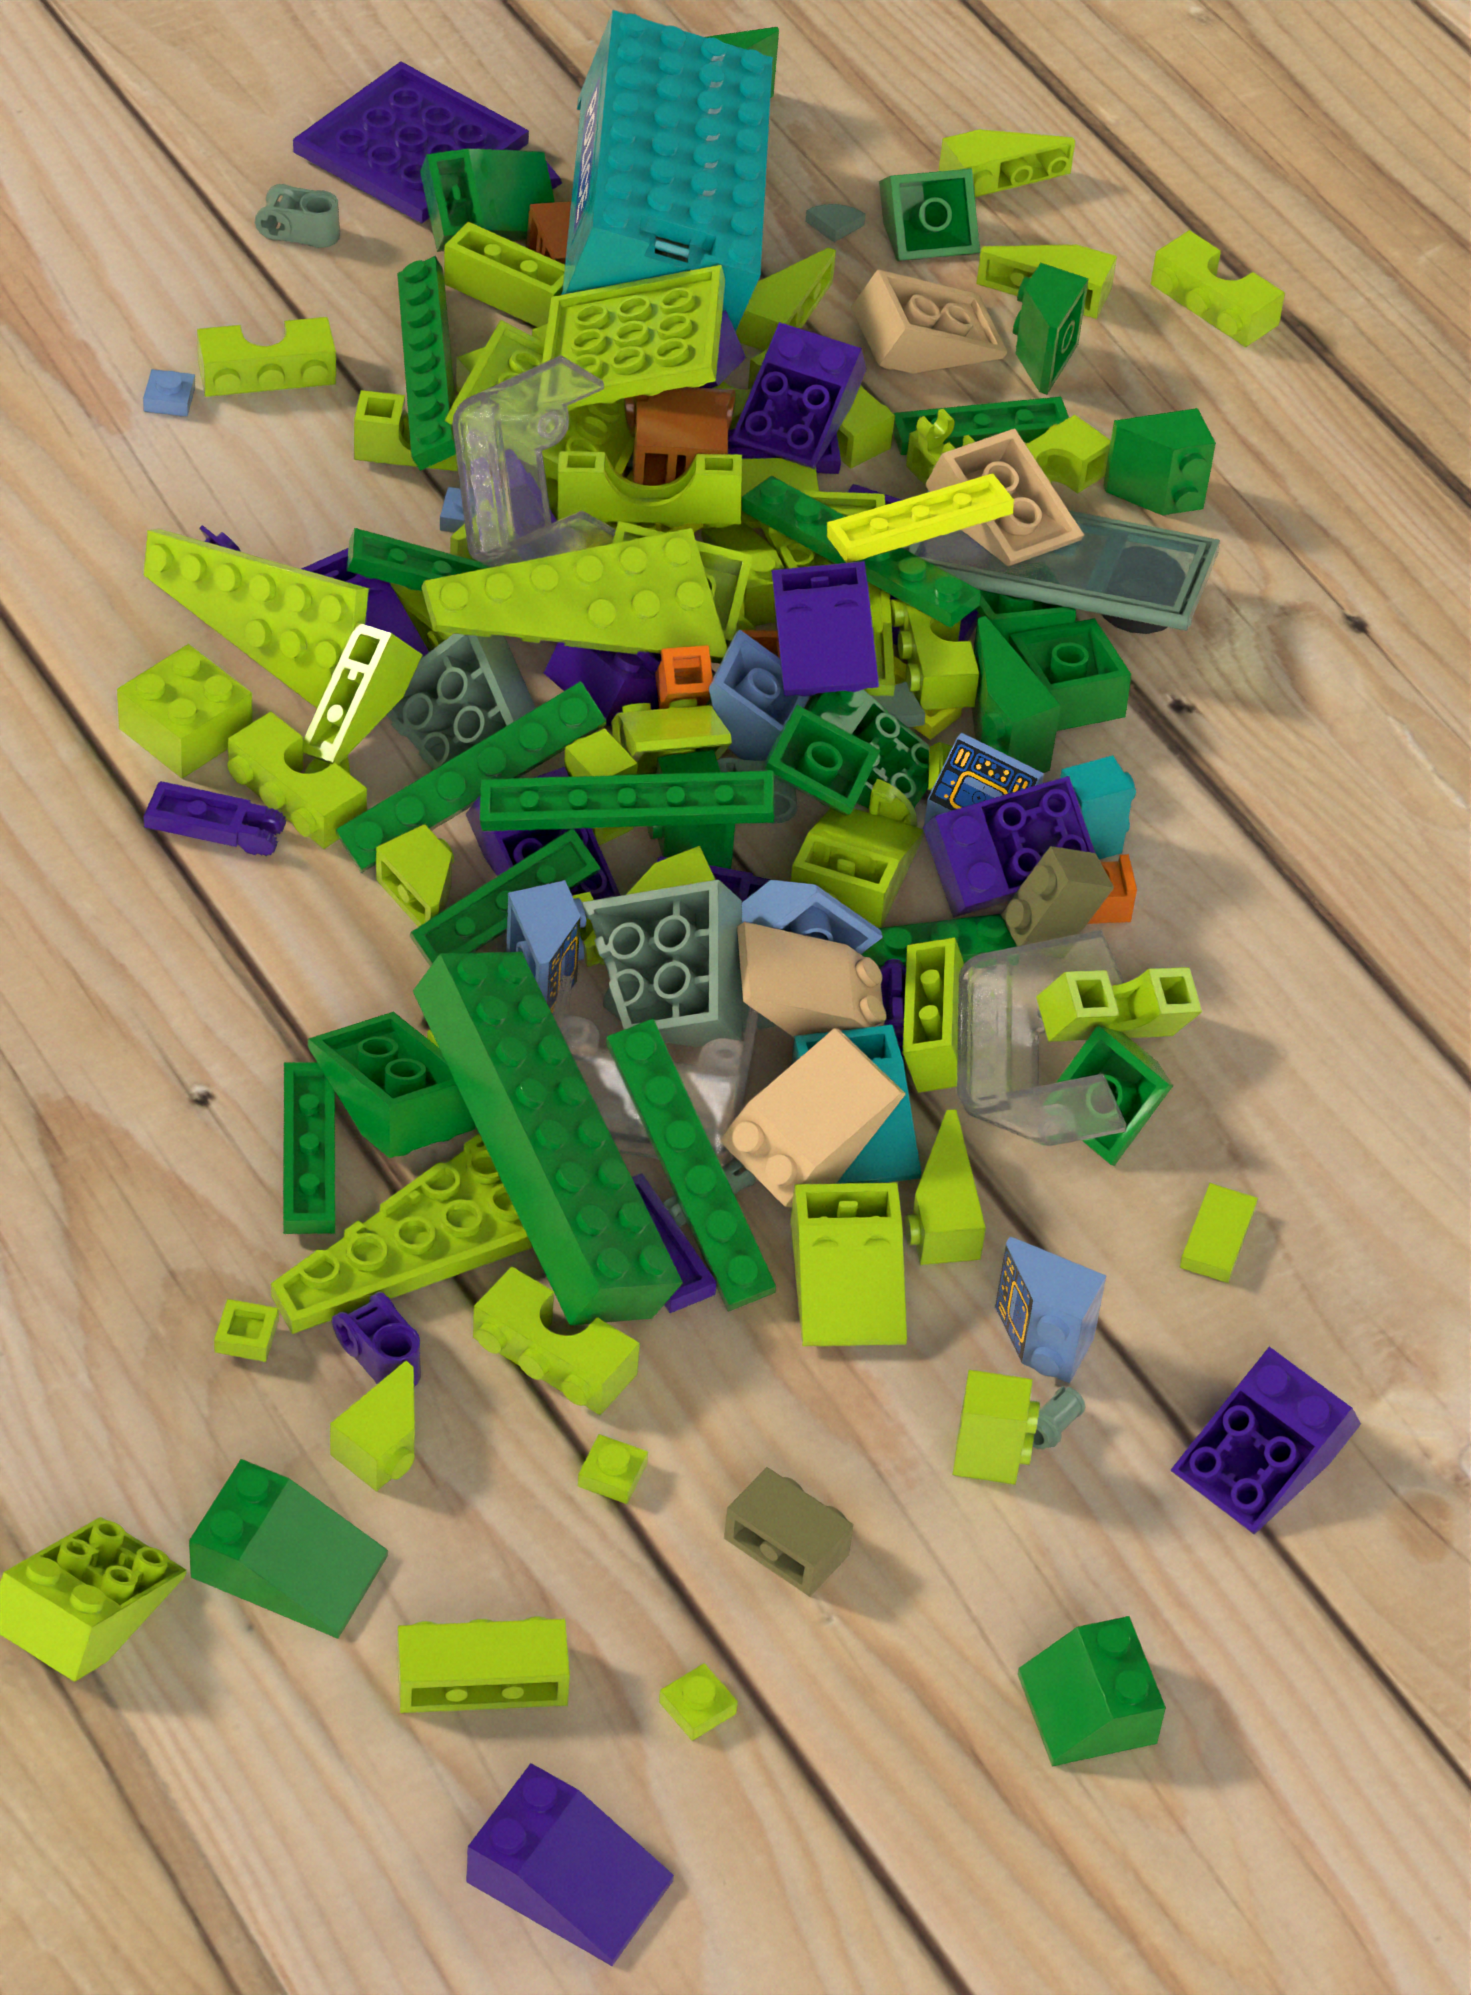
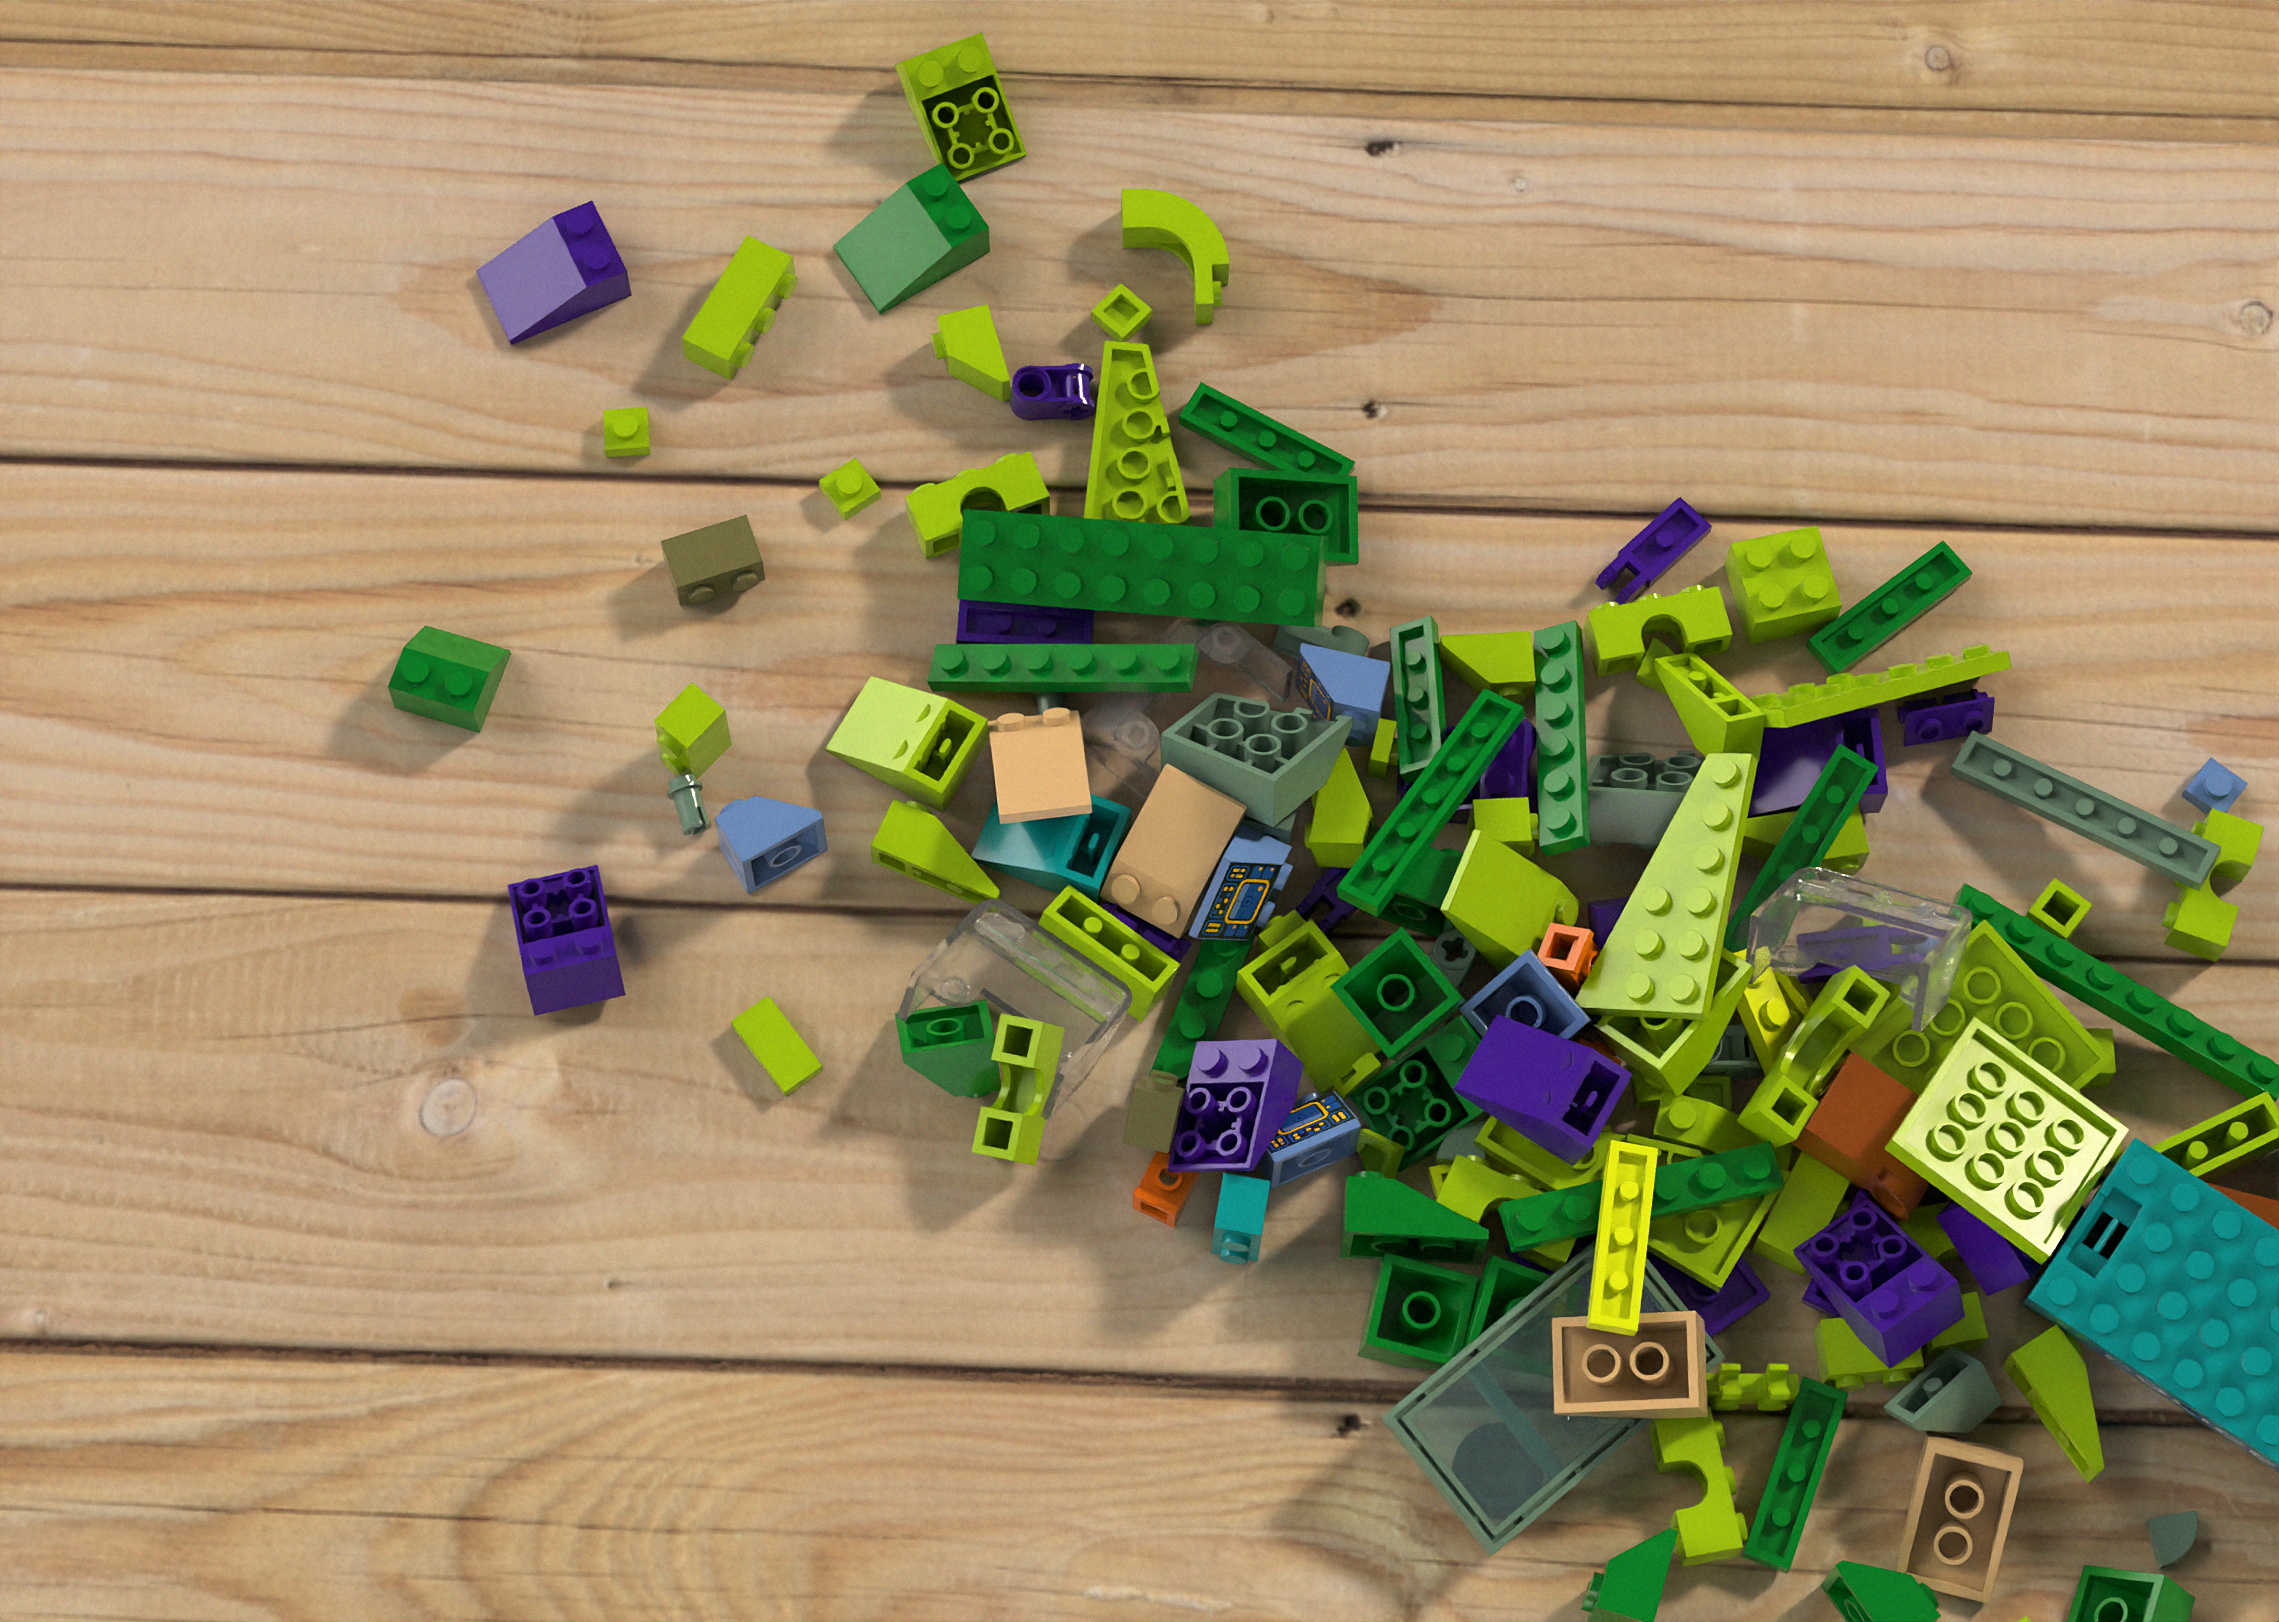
camera: 125 degrees right, 20 degrees up
(119, 1297) = (1180, 227): none -> lime arch
(143, 635) = (1889, 609): none -> green plate
(265, 440) = (2086, 810): none -> sand green plate
(878, 350) = (1947, 1395): none -> sand green slope

